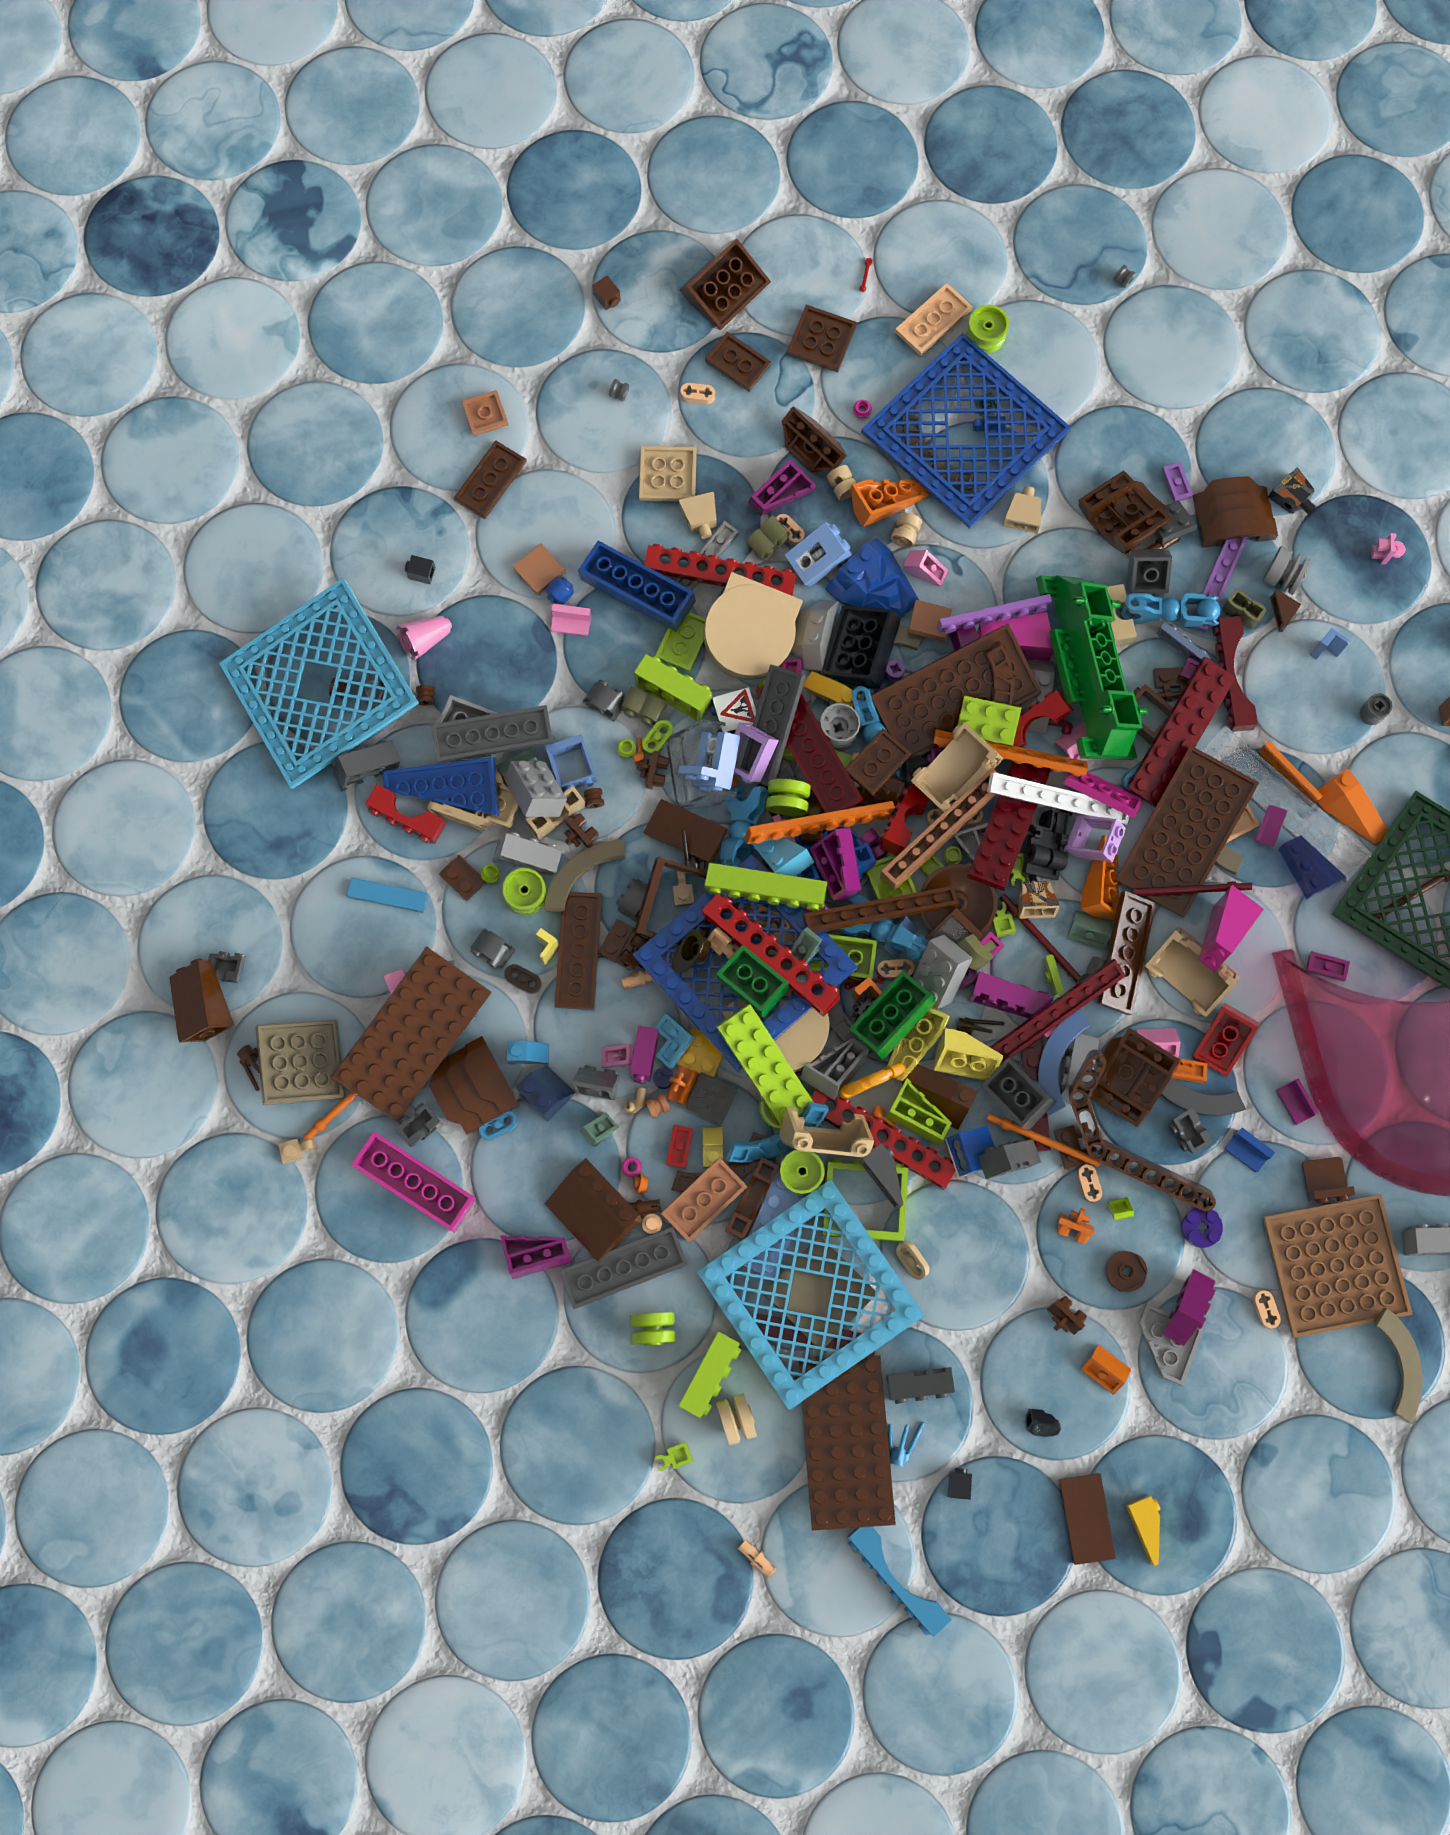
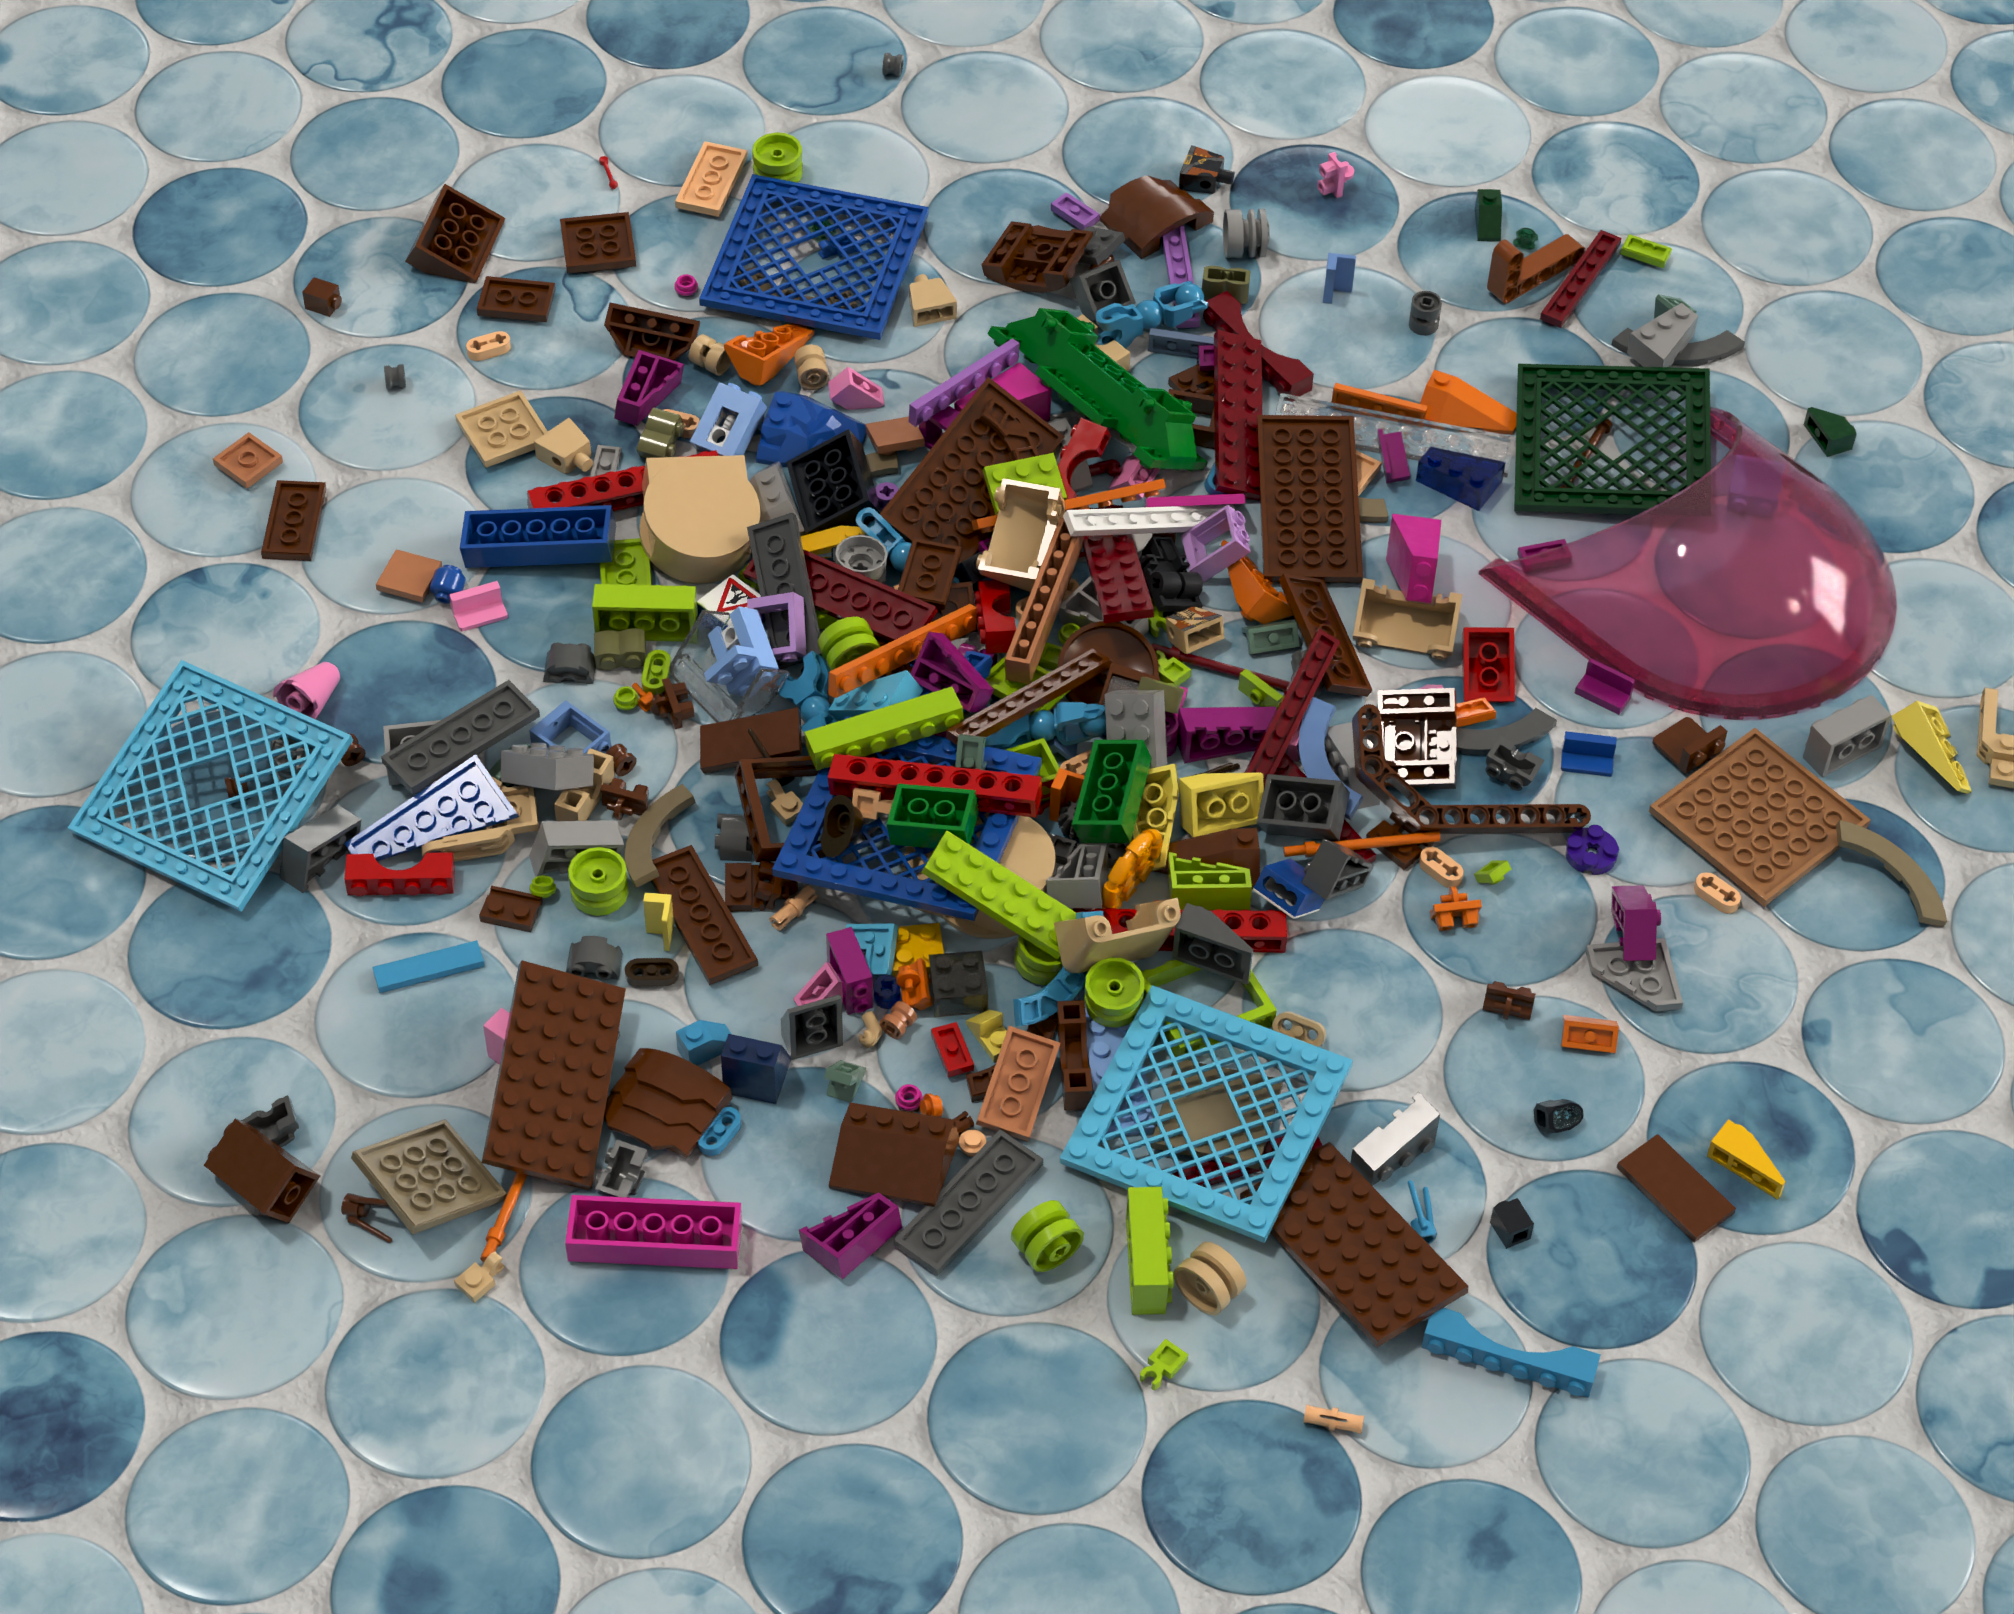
camera: 30 degrees left, 25 degrees down
(420, 569) = (264, 634): black brick -> none
(1129, 1260) = (1539, 941): reddish brown plate -> none
(1191, 889) = (1347, 547): dark red bar -> none
(1284, 608) = (1265, 270): reddish brown slope -> none

